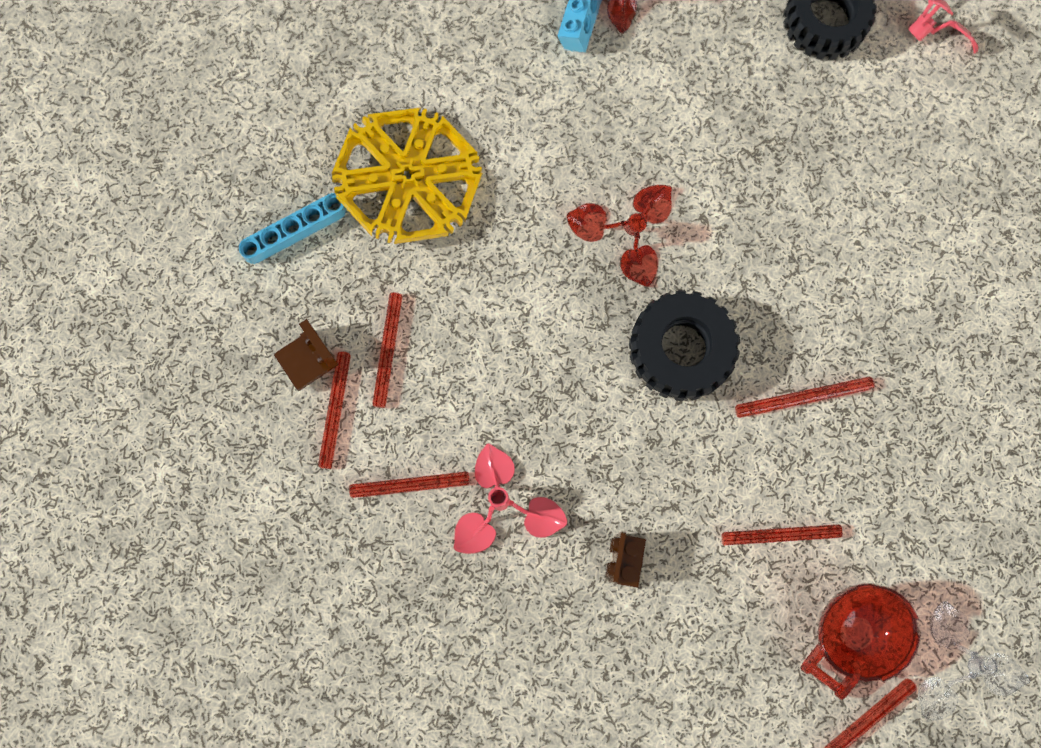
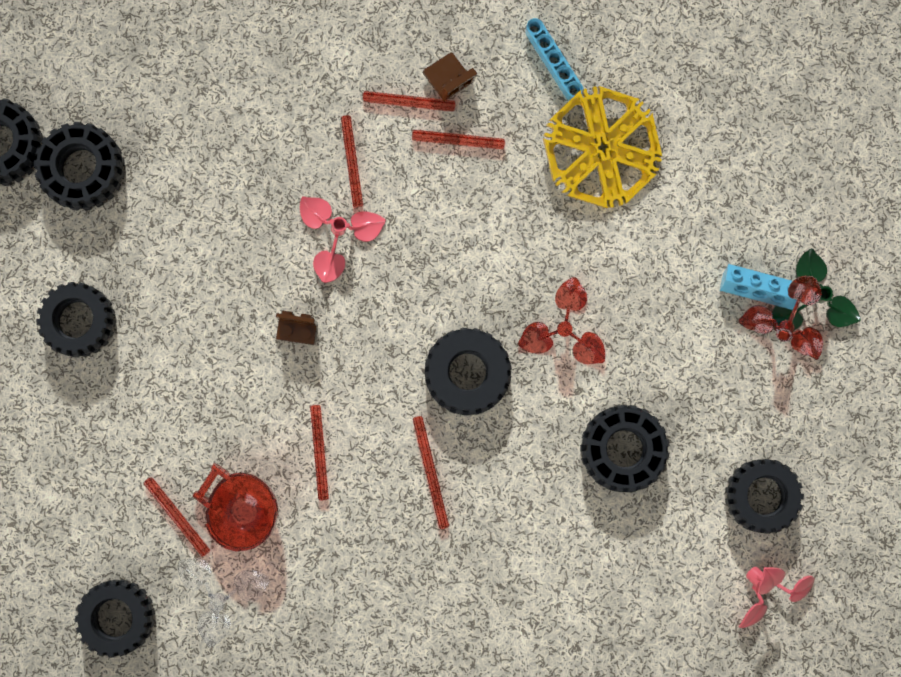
camera: 85 degrees right, 5 degrees up
(795, 139) = (653, 443): none -> black tyre

